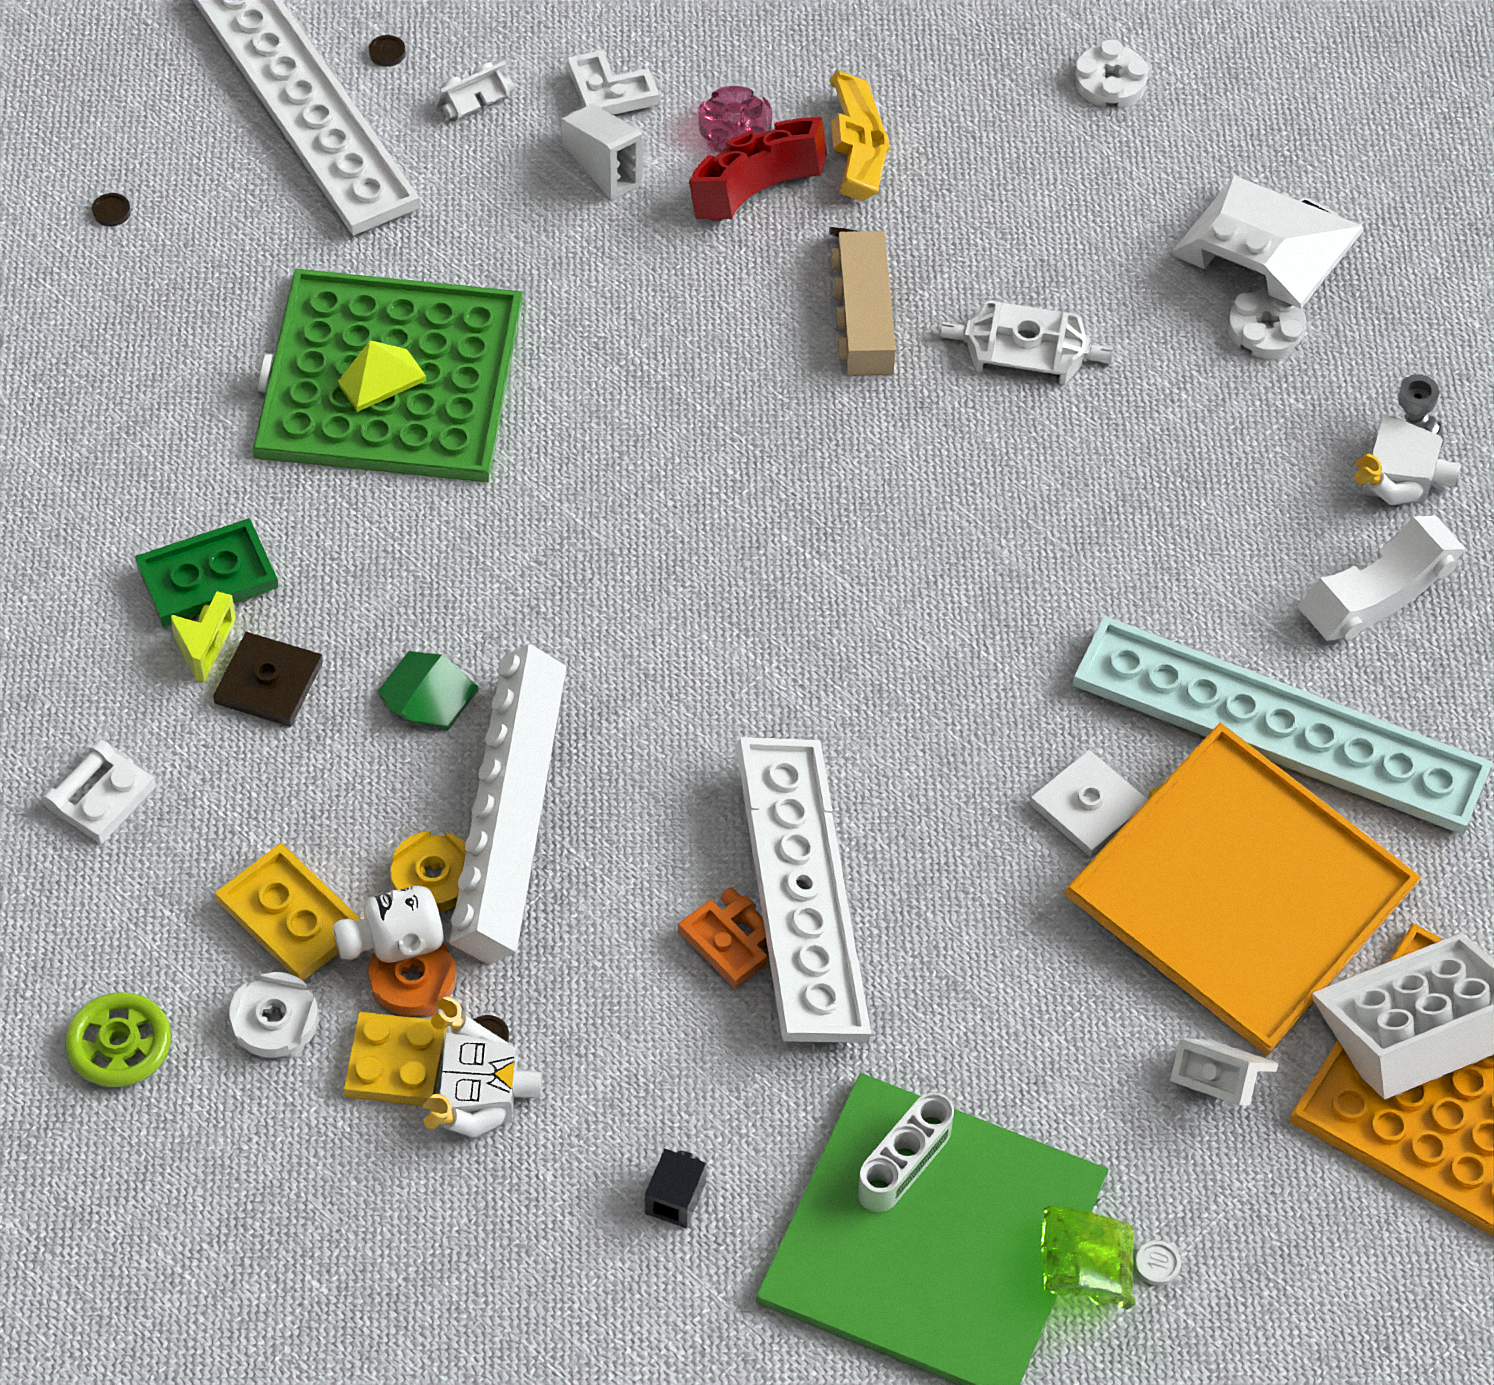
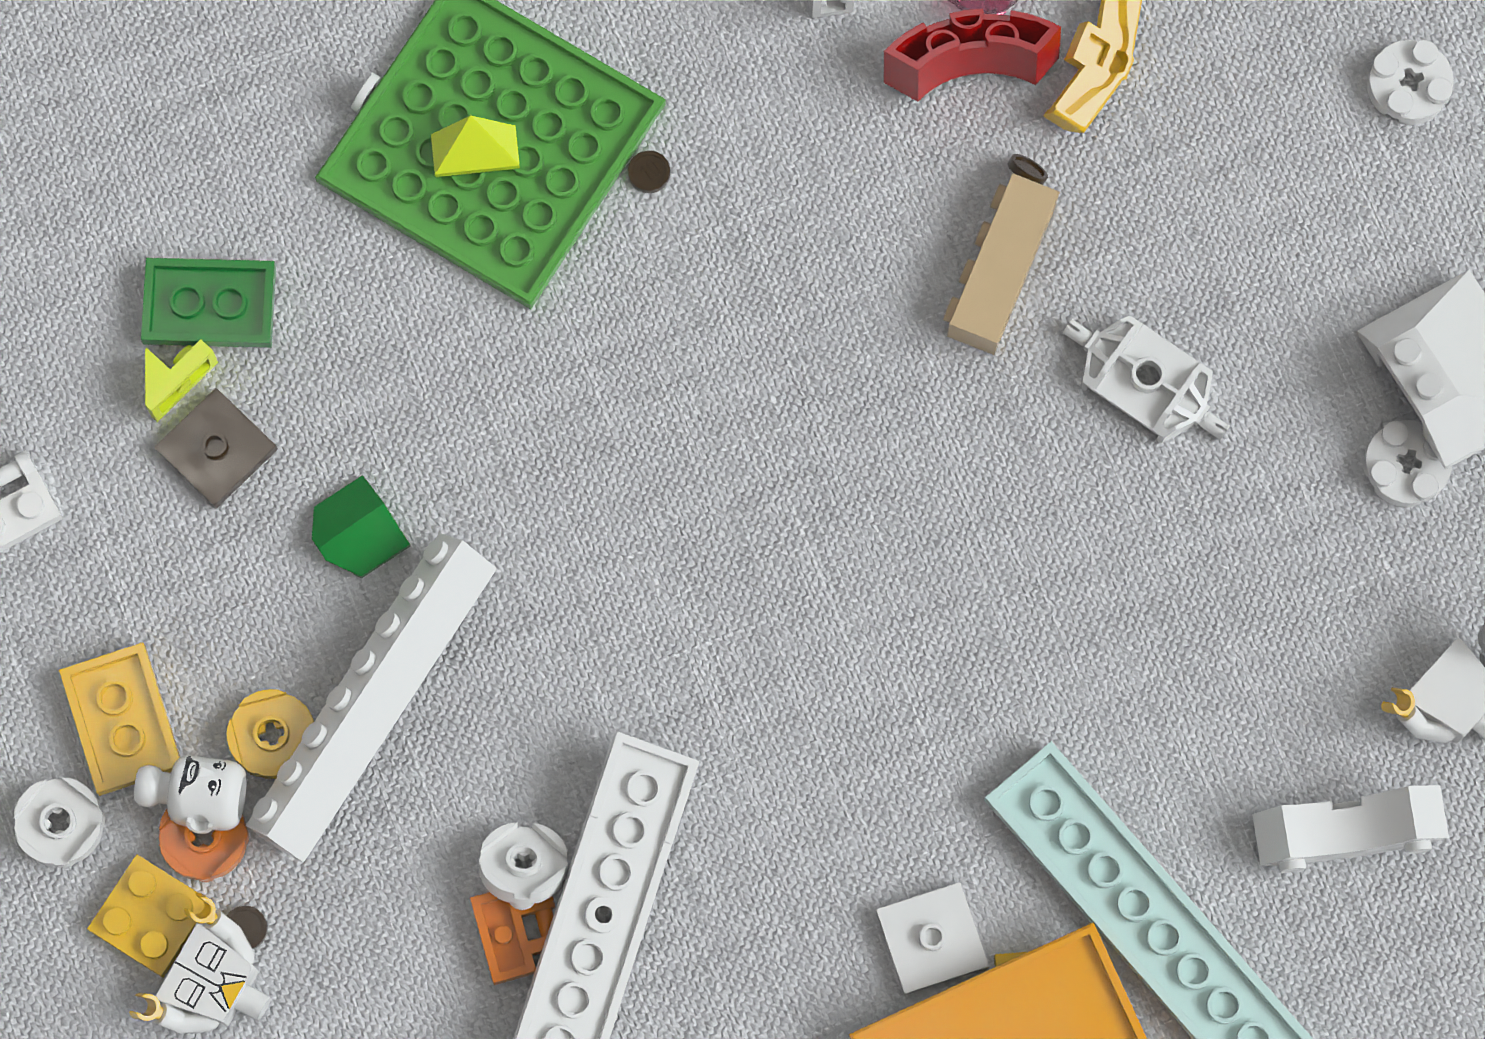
camera: 25 degrees right, 20 degrees up
(535, 349) = (649, 171): none -> dark brown piece
(711, 878) = (519, 885): none -> white plate

